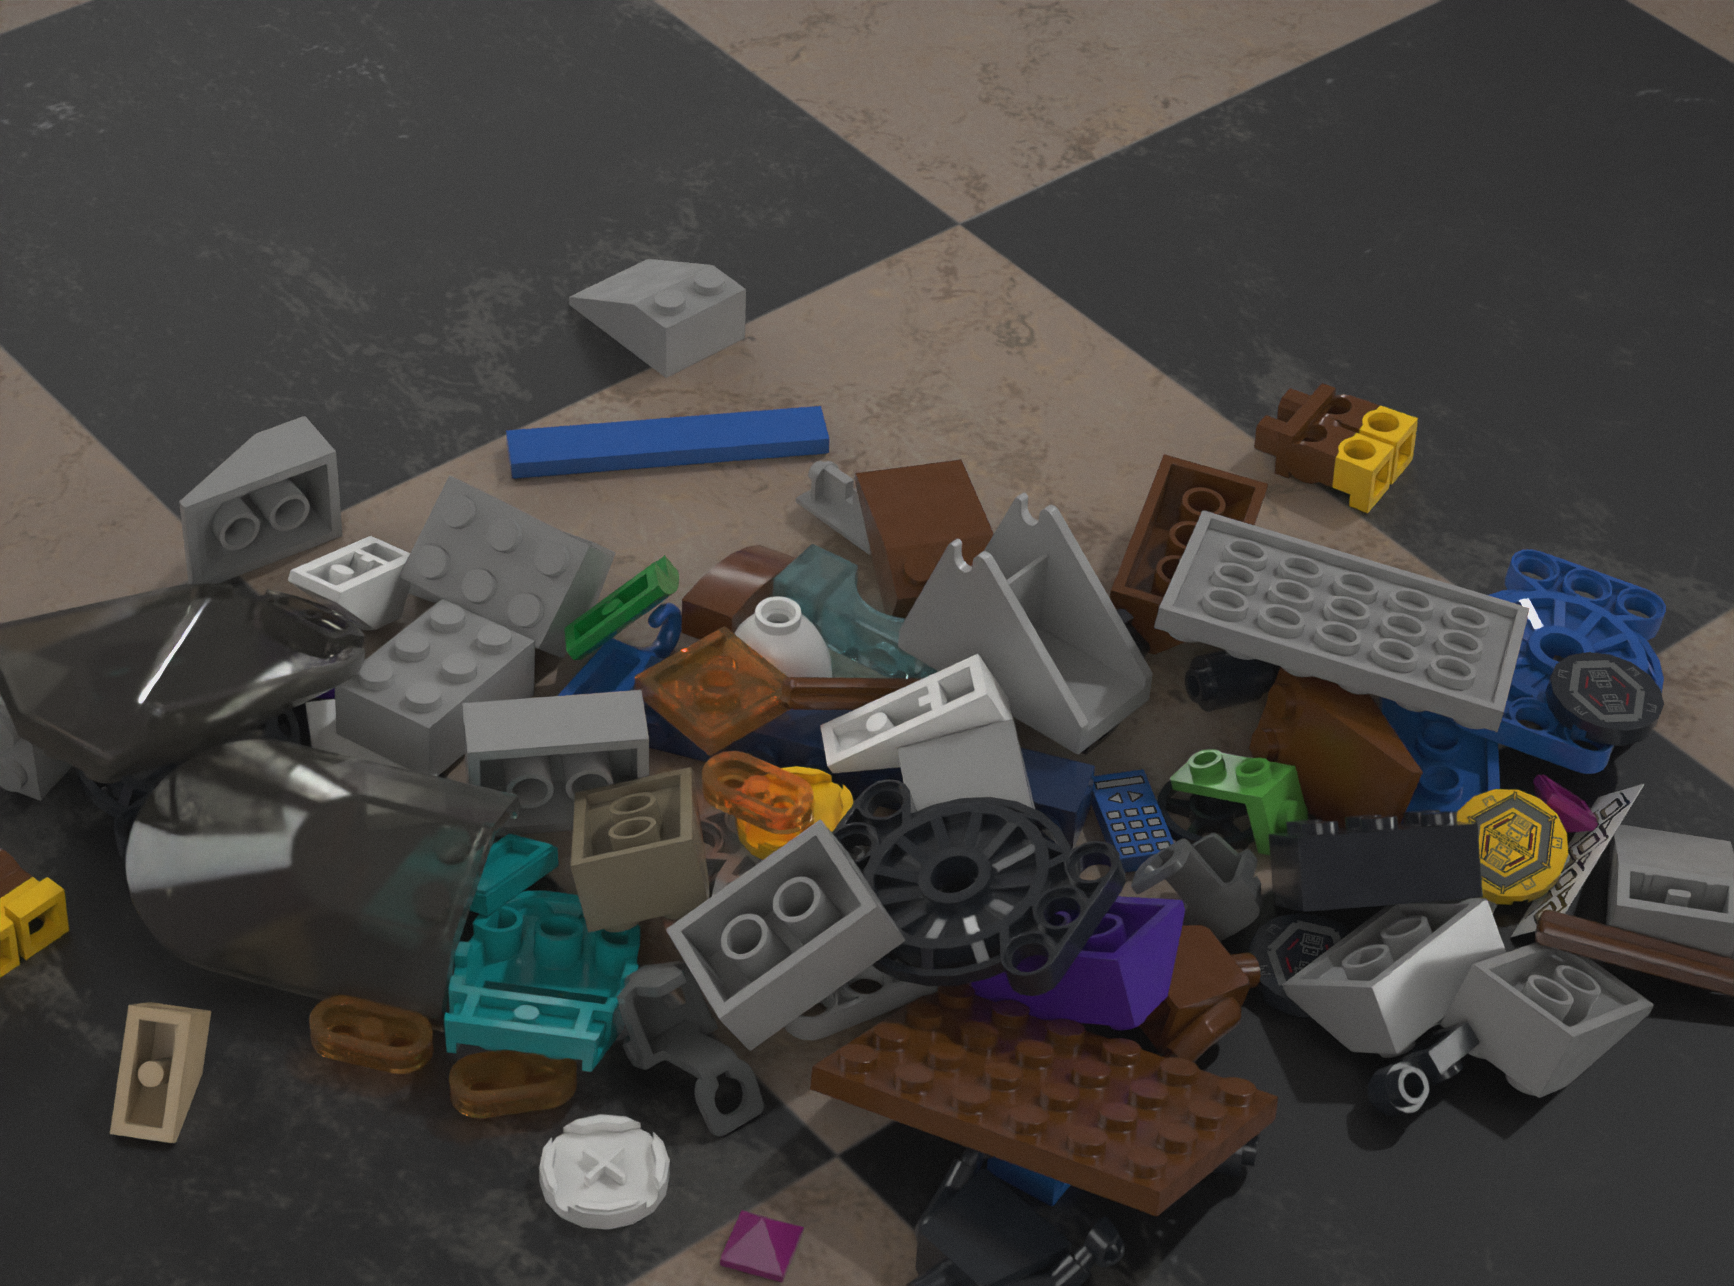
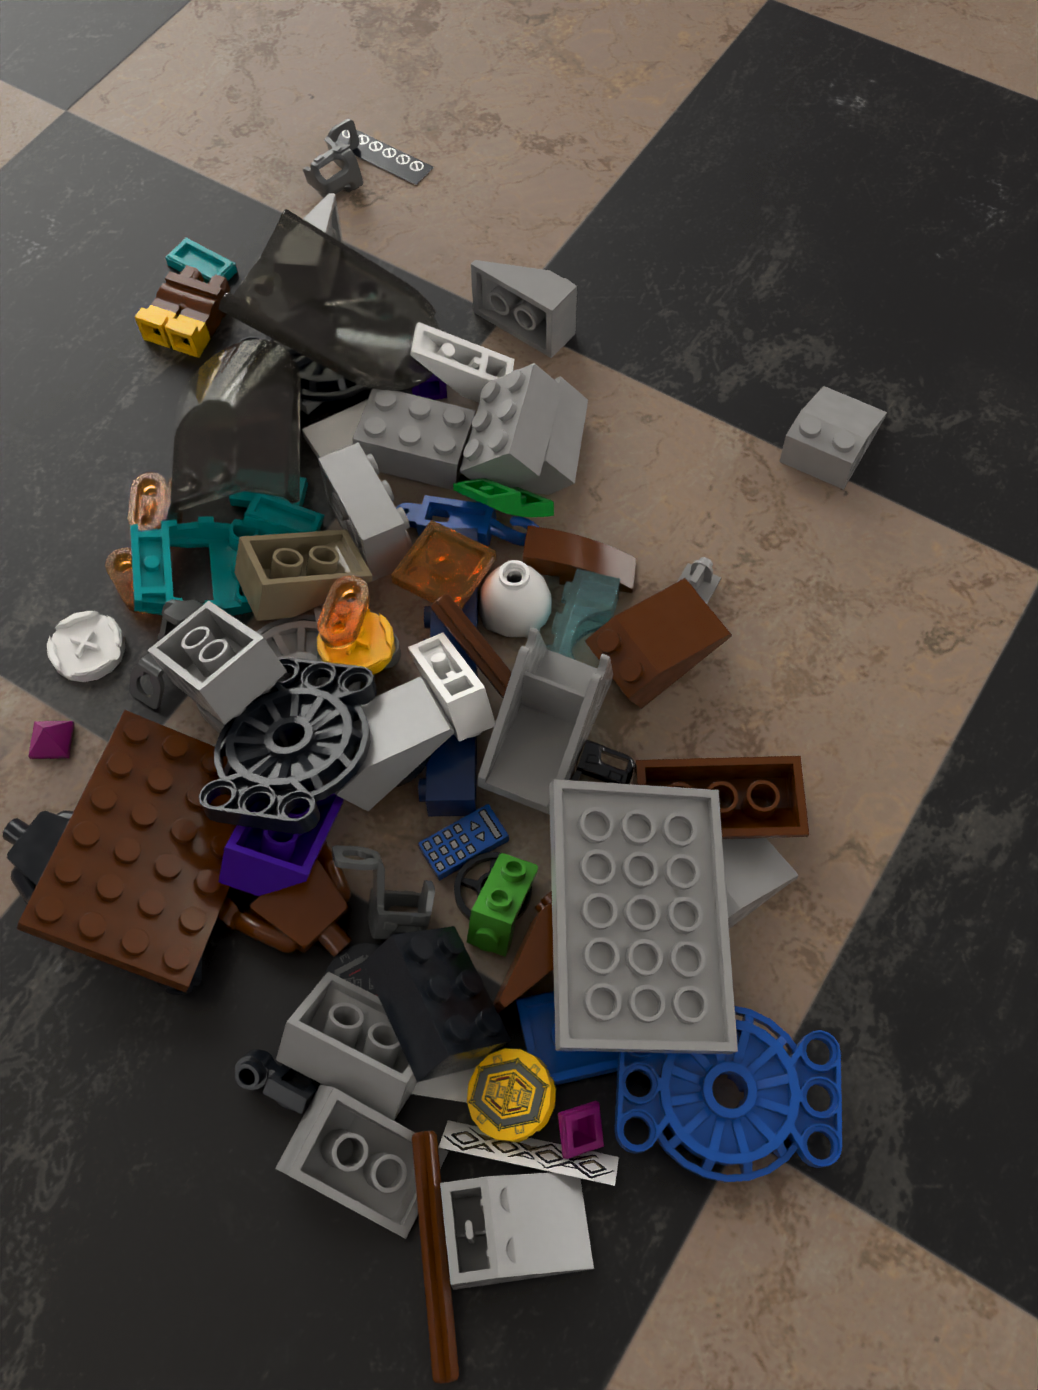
camera: 75 degrees right, 20 degrees up
(159, 1070) = (97, 423): tan slope -> none
(666, 442) = (711, 483): blue tile -> none
(1338, 443) = (916, 880): hips -> none
(1605, 698) = (675, 1133): black tile -> none

